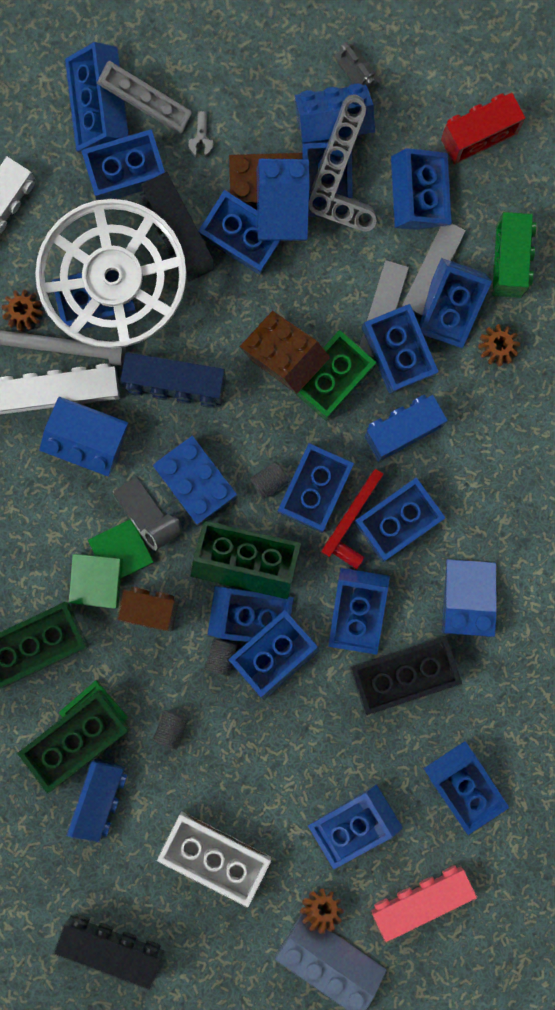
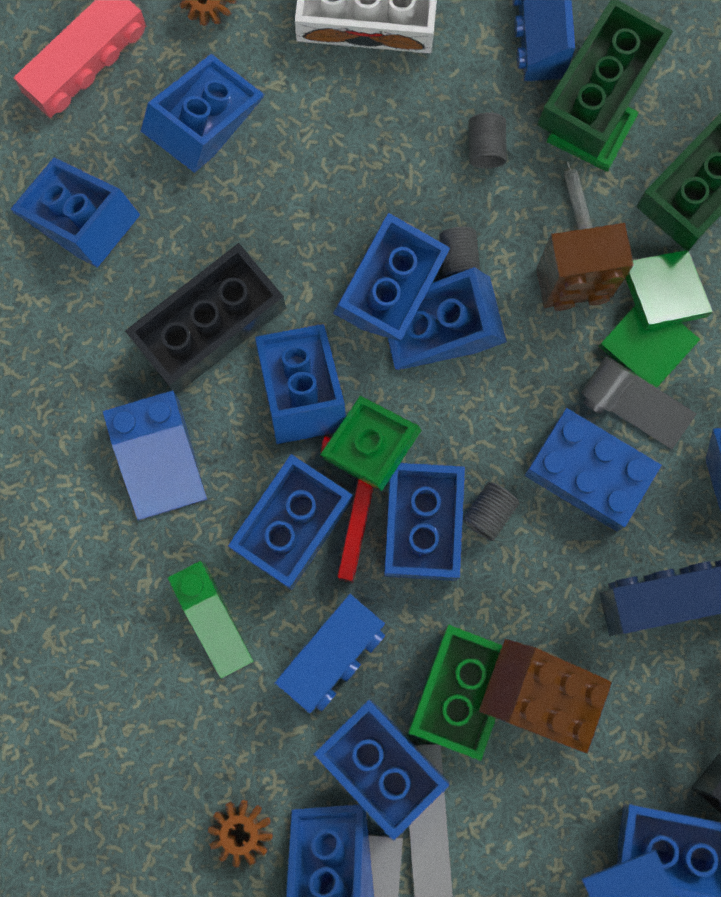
camera: 160 degrees right, 5 degrees down
(122, 664) = (588, 217): none -> white piece
(245, 559) = (482, 386): dark green brick -> none
(330, 549) = (371, 443): none -> green tile
(471, 481) = (210, 618): none -> slope

